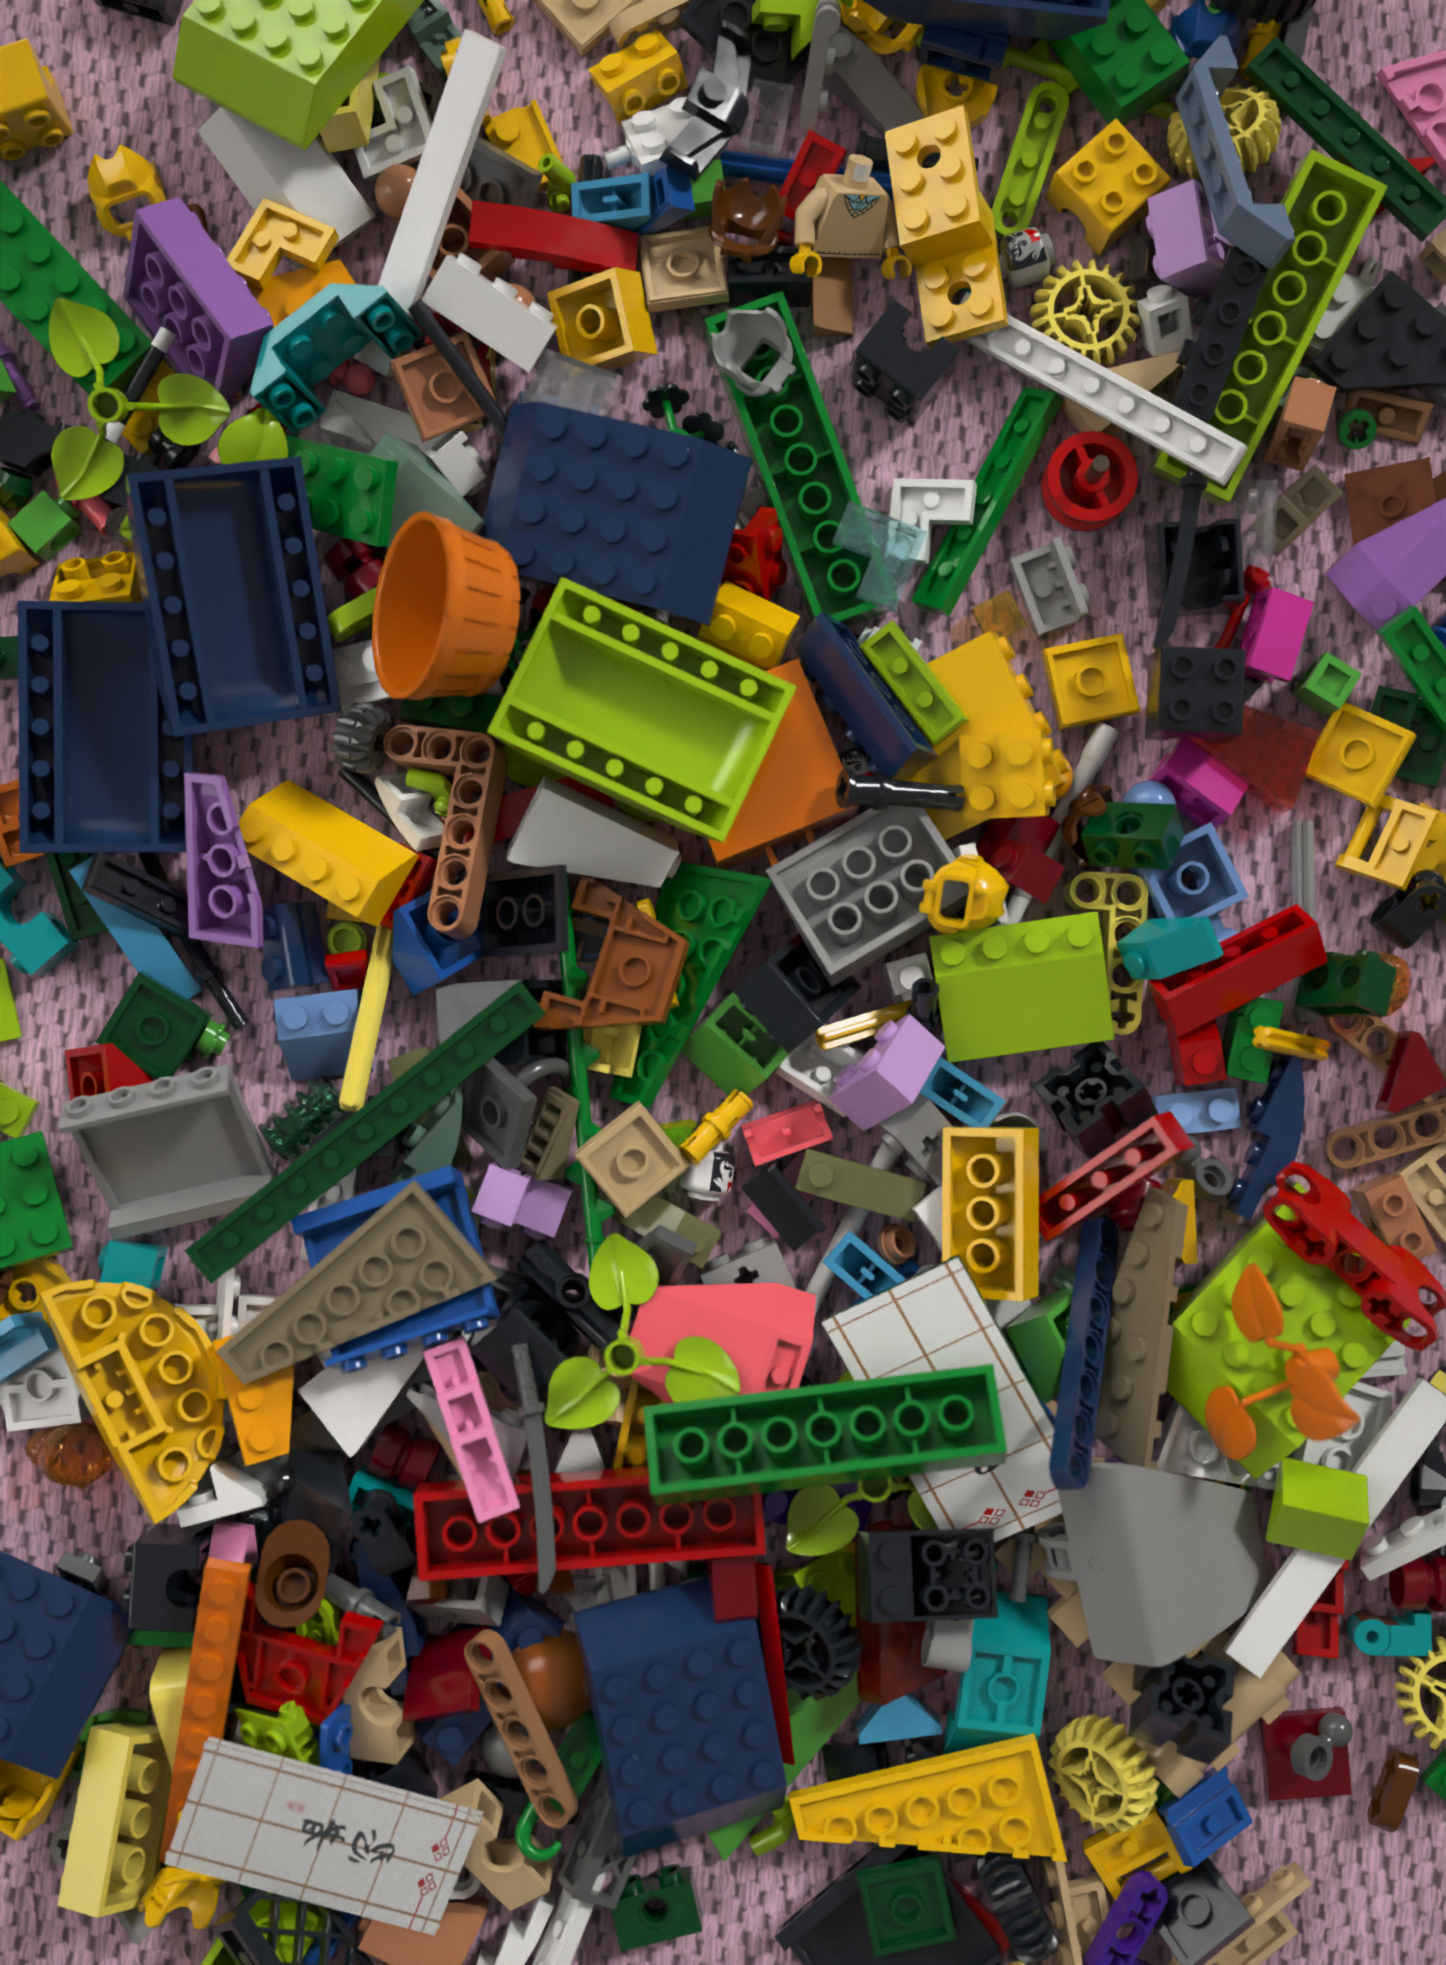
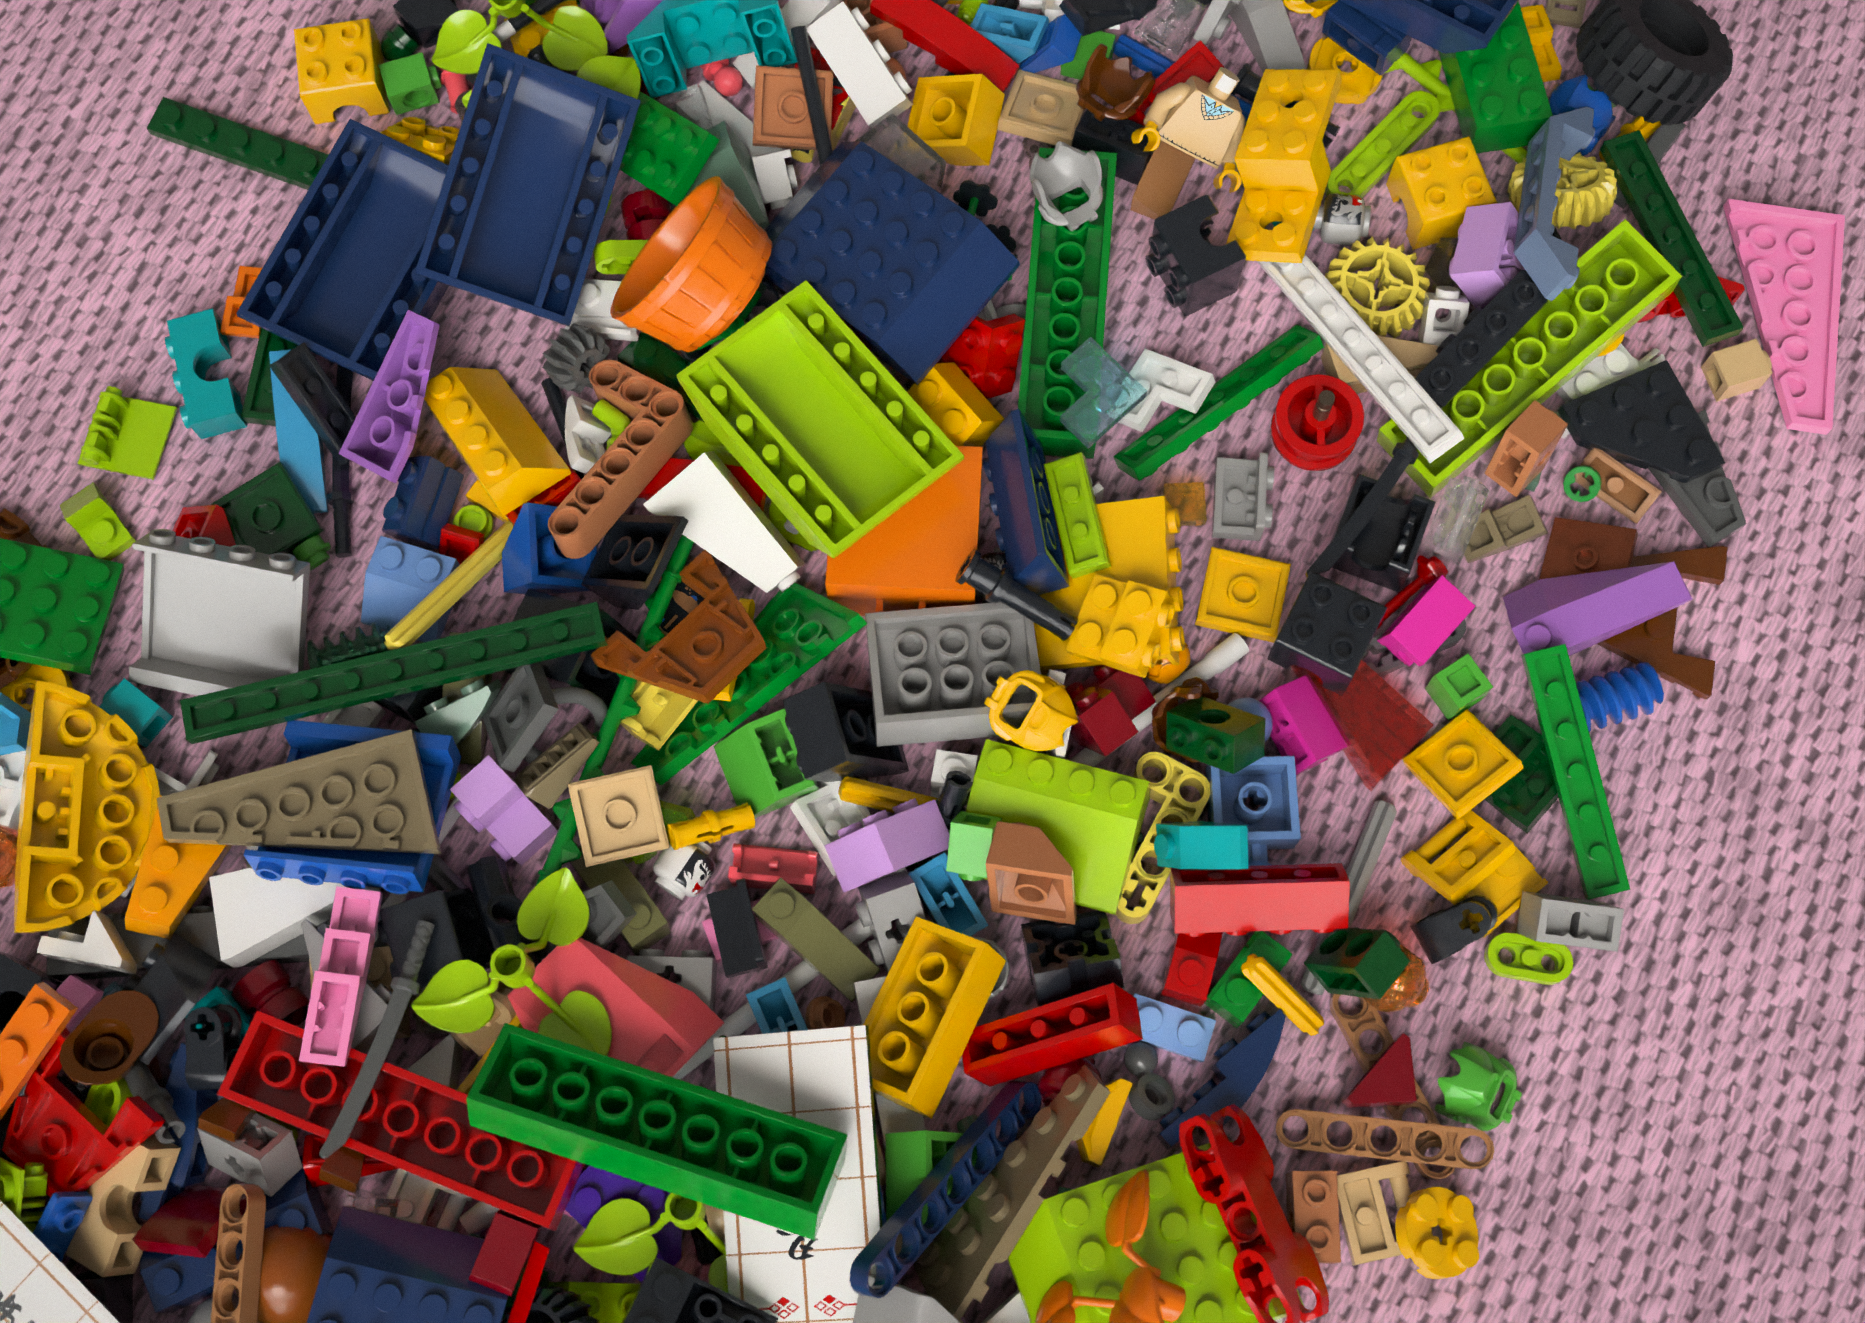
camera: 25 degrees right, 15 degrees down
(965, 1039) = (970, 844): none -> brick
(1027, 1042) = (1029, 875): none -> nougat slope

